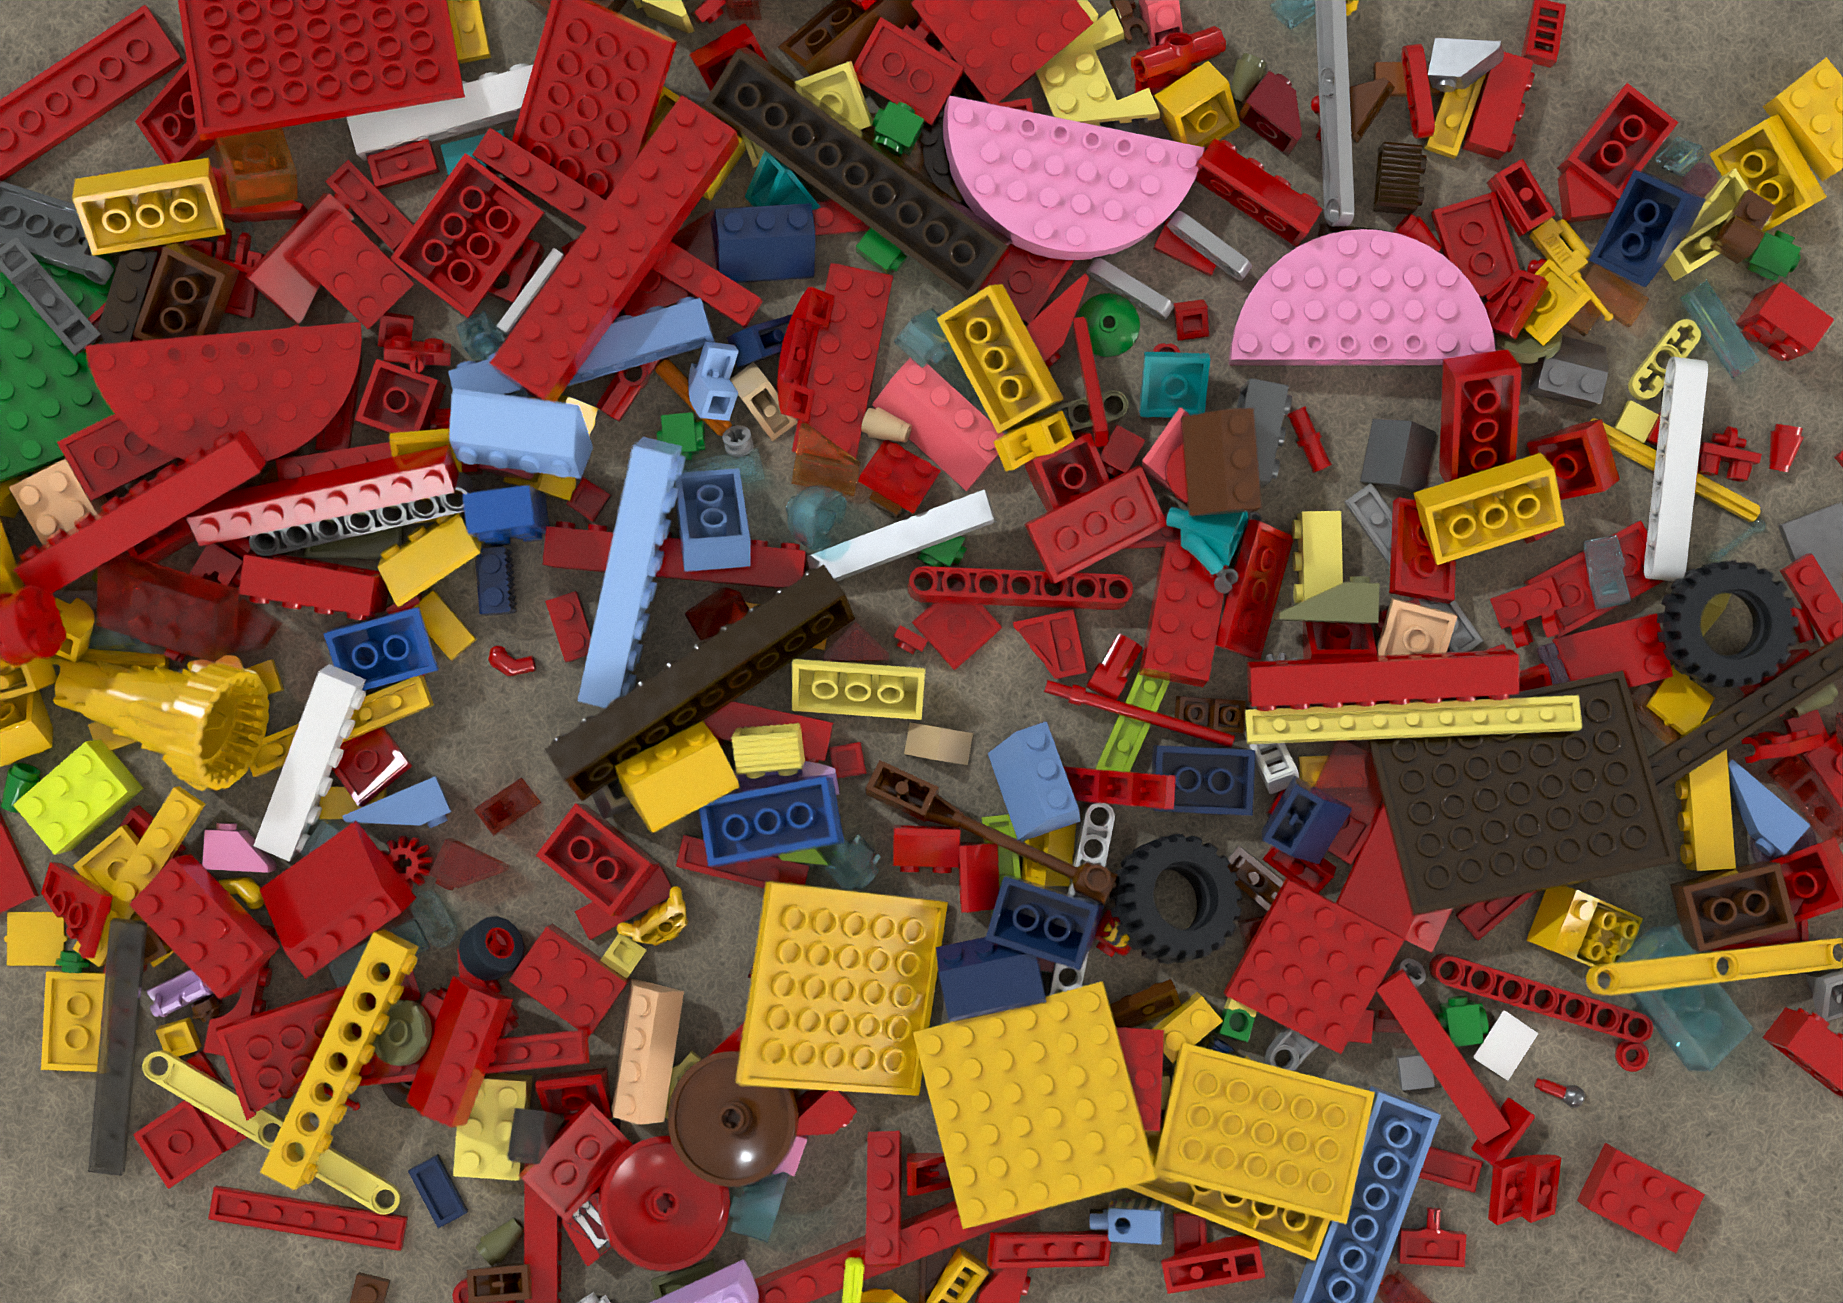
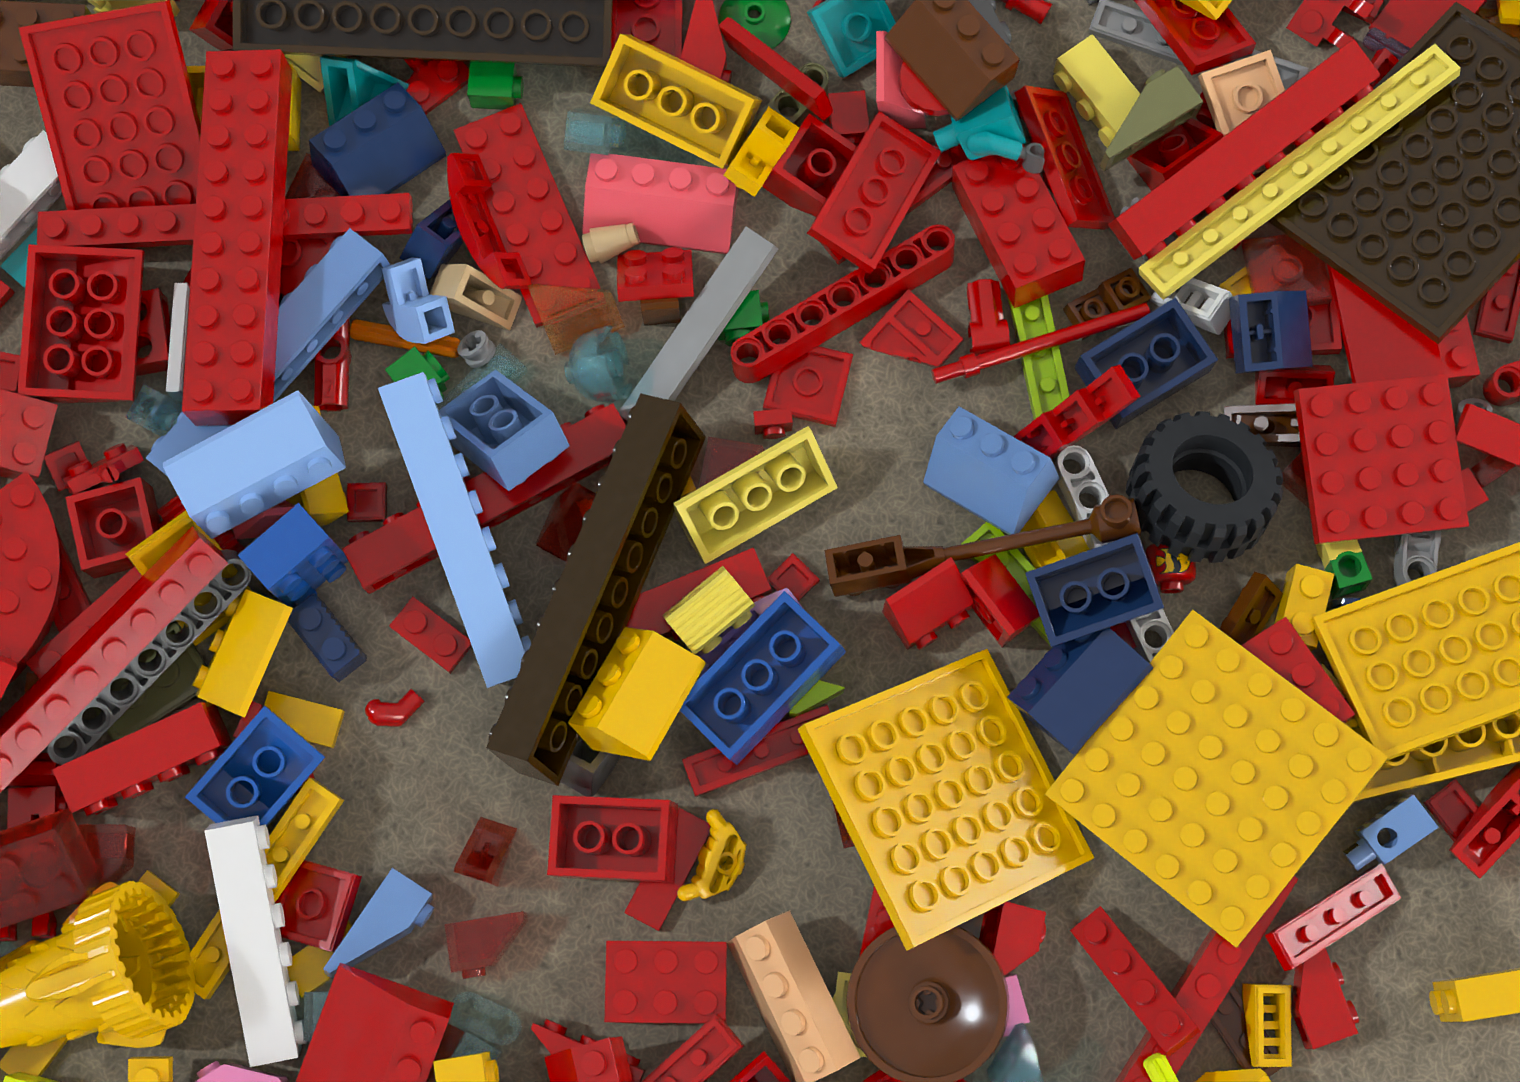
camera: 30 degrees left, 10 degrees down
(398, 851) = (419, 964): red gear -> none
(491, 948) = (565, 1003): black wheel -> none
(623, 955) = (703, 921): light yellow plate -> none
(853, 863) = (868, 669): clear light blue brick -> none
(926, 1173) = (1160, 926): red slope -> none
(938, 743) = (868, 503): tan slope -> none

